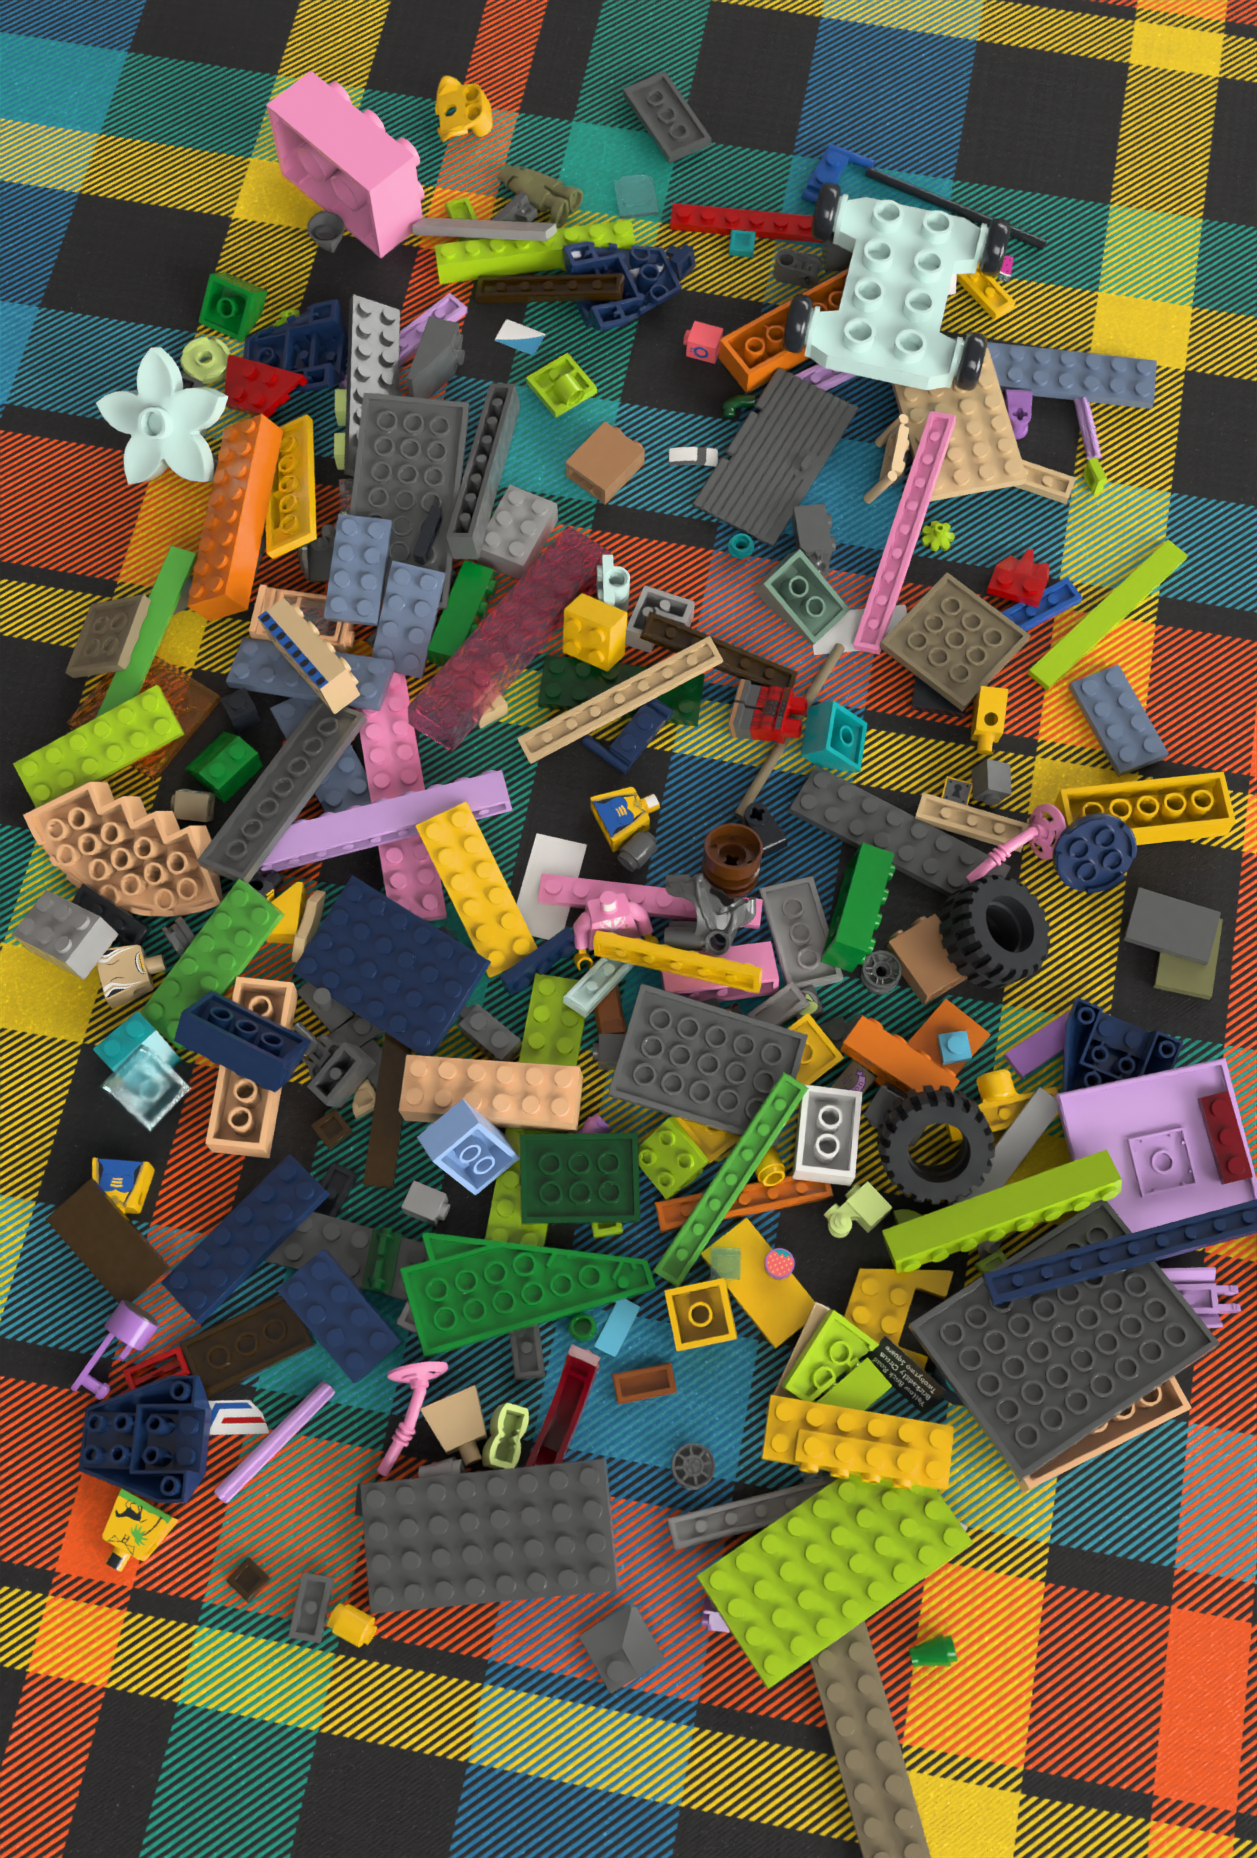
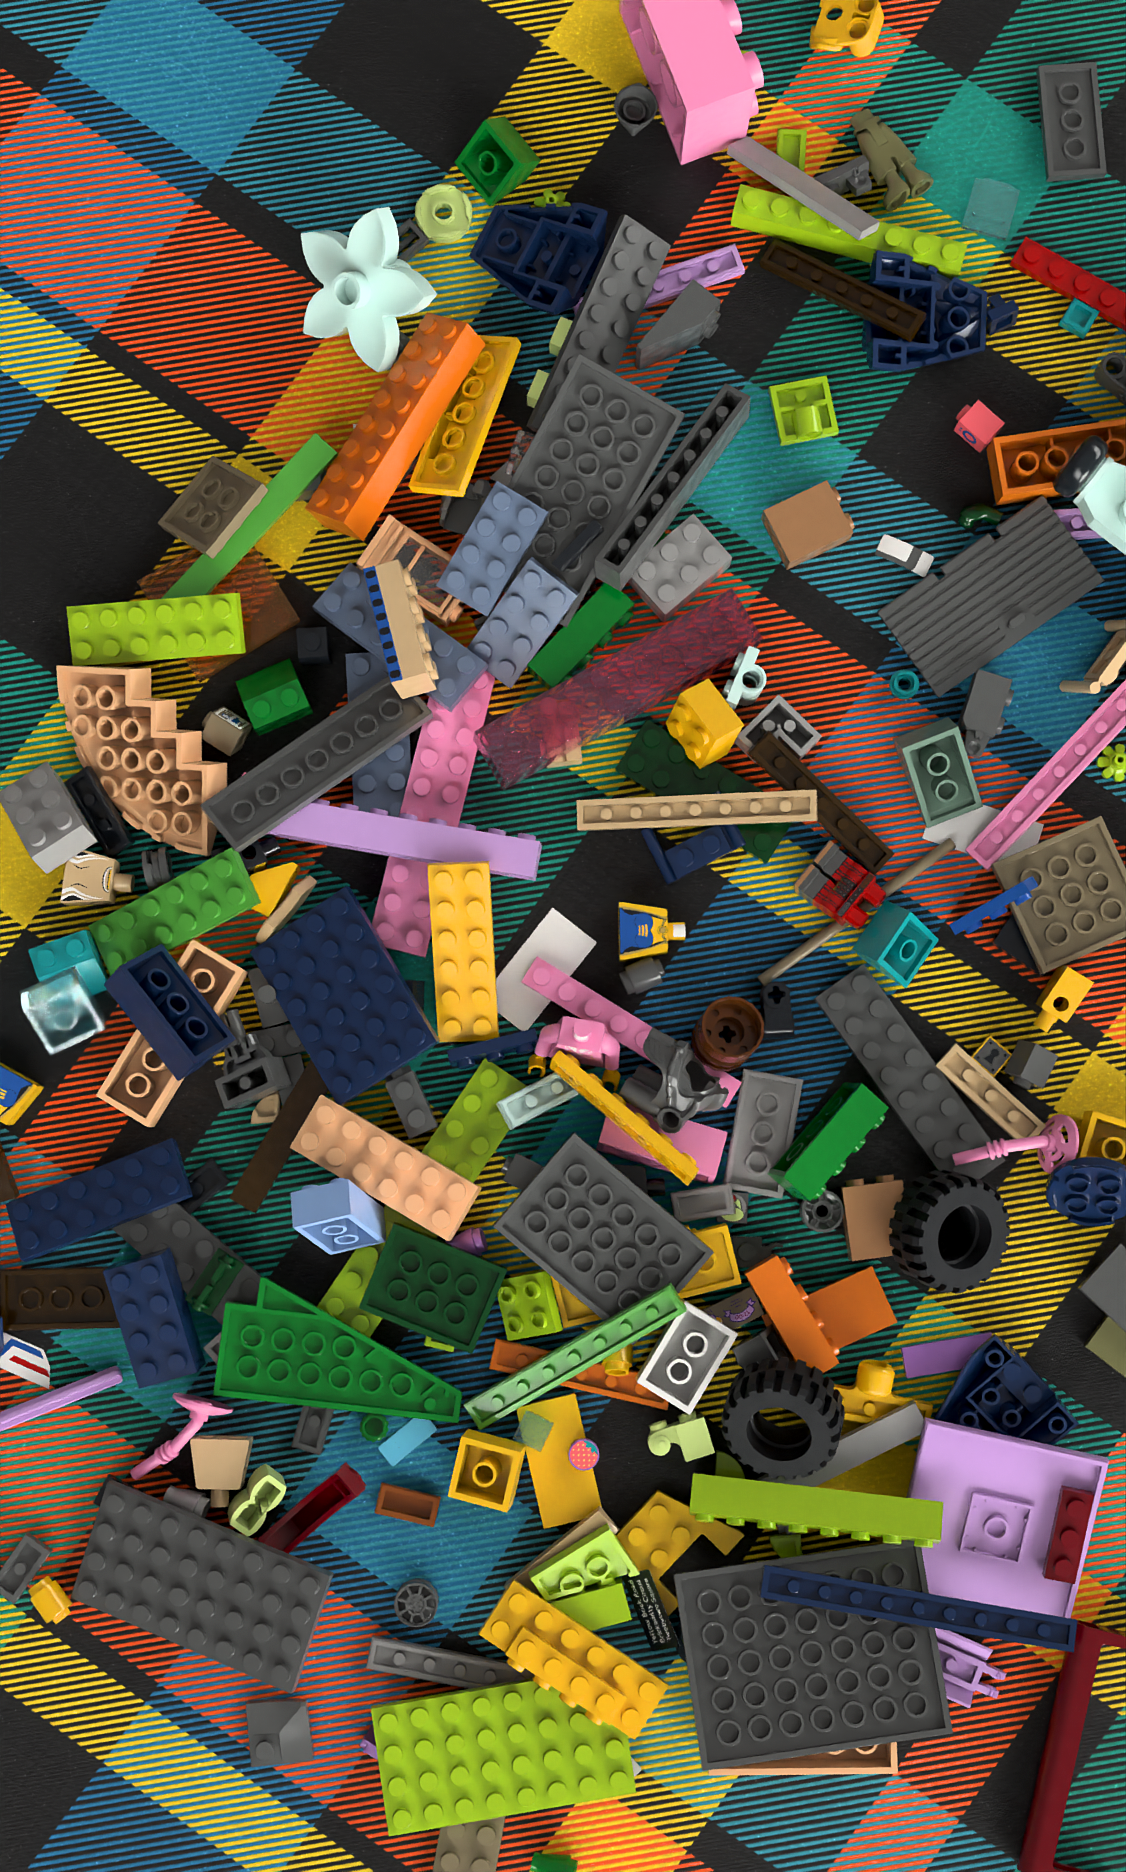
camera: 25 degrees right, 15 degrees up
(257, 386) = (481, 274): red wing -> none
(332, 1129) = (223, 1127): dark brown plate -> none
(426, 1204) = (280, 1242): light grey brick -> none
(519, 337) = (786, 329): sticker -> none
(610, 1014) = (538, 1134): dark orange tile -> none
(899, 671) = (995, 907): none -> blue plate
(954, 1047) = (854, 1321): medium azure plate -> none

